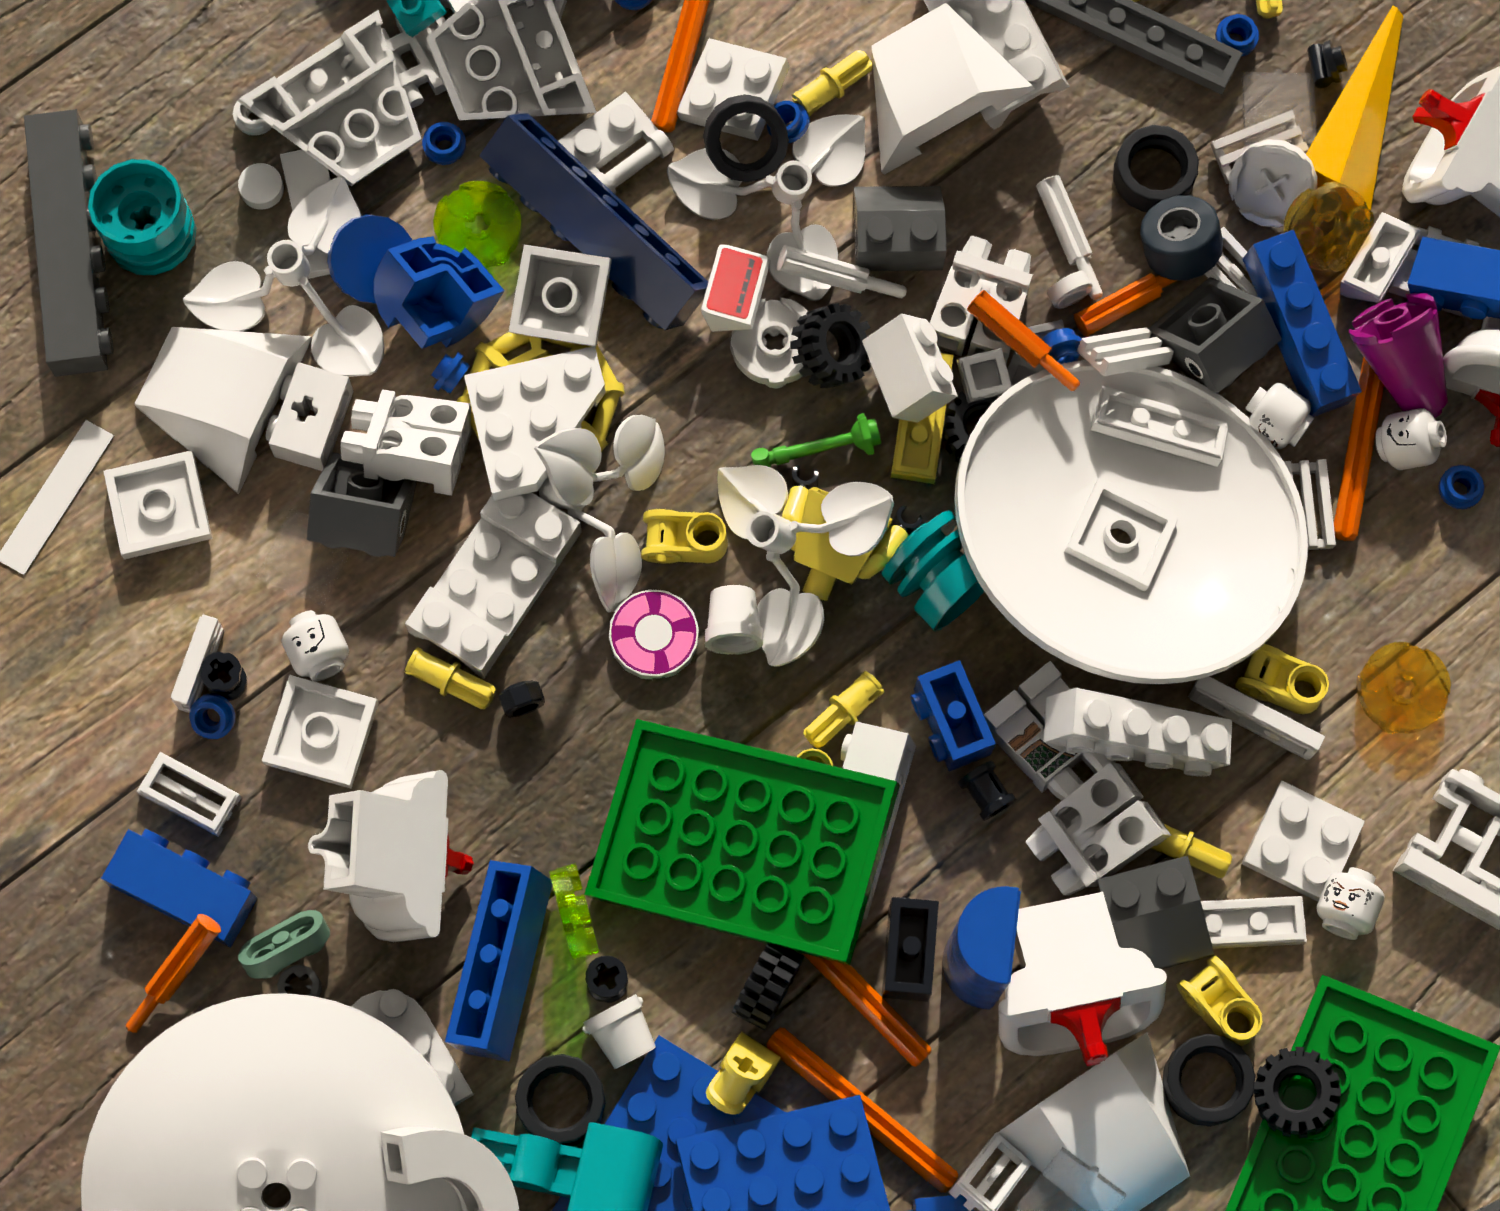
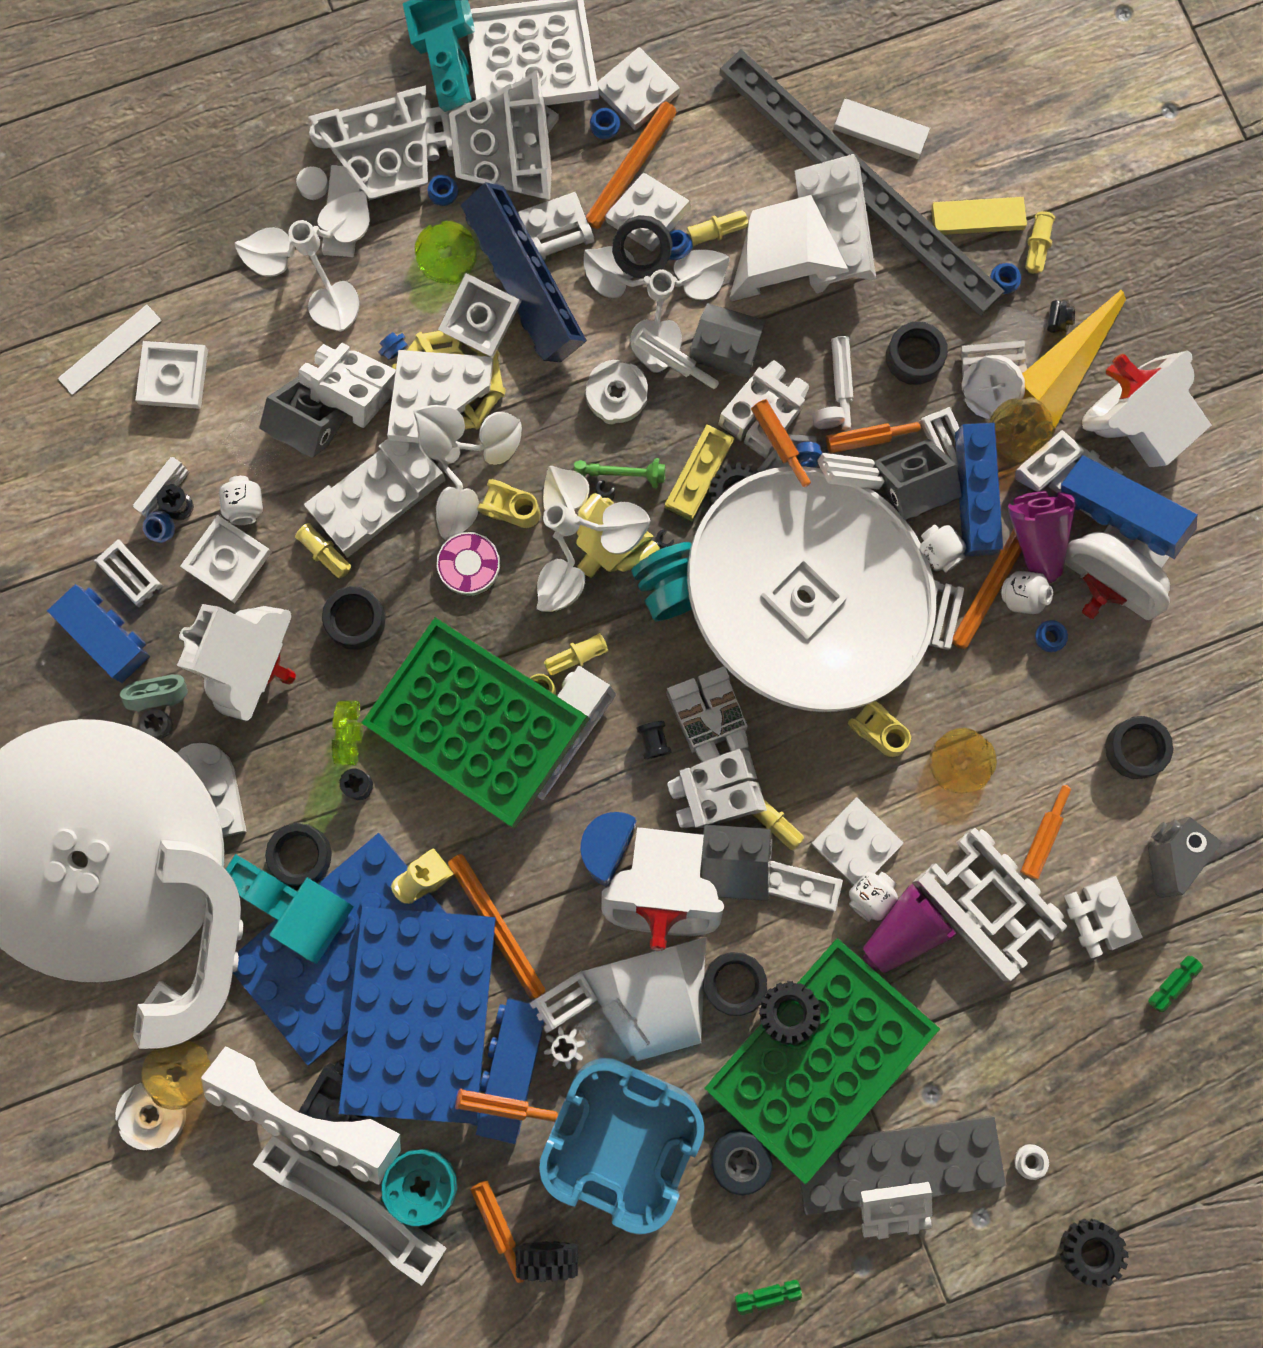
camera: 20 degrees right, 5 degrees up
(67, 244) = (171, 182): dark grey brick -> none
(148, 198) = (223, 178): teal wheel -> none
(175, 968) = (76, 685): orange axle -> none
(219, 392) = (238, 311): white wedge -> none
(309, 441) = (292, 330): white brick -> none
(358, 252) = (366, 253): blue tile -> none
(434, 291) = (398, 287): blue brick -> none
(499, 960) = (287, 750): blue brick -> none
(521, 698) = (366, 578): black tile -> none
(530, 722) = (347, 594): none -> black tyre
(621, 1031) = (353, 822): white piece -> none
(733, 621) = (522, 571): white piece -> none
(734, 289) = (600, 347): slope -> none
(767, 985) = (458, 824): black tyre -> none
(814, 351) = (667, 406): black tyre -> none
(874, 1009) = (529, 865): orange axle -> none
(910, 368) = (698, 437): white piece -> none
(910, 949) = (562, 830): black brick -> none
(953, 716) = (647, 682): blue brick -> none
(984, 375) = (747, 457): light grey tile -> none
(1137, 731) = (766, 733): white brick -> none
(1160, 426) = (857, 530): white tile -> none
(1181, 237) = (917, 405): black wheel -> none
(1220, 1000) = (761, 932): light yellow piece -> none
(1256, 717) = (854, 749): white tile -> none
(1411, 936) = (906, 932): none -> magenta cone

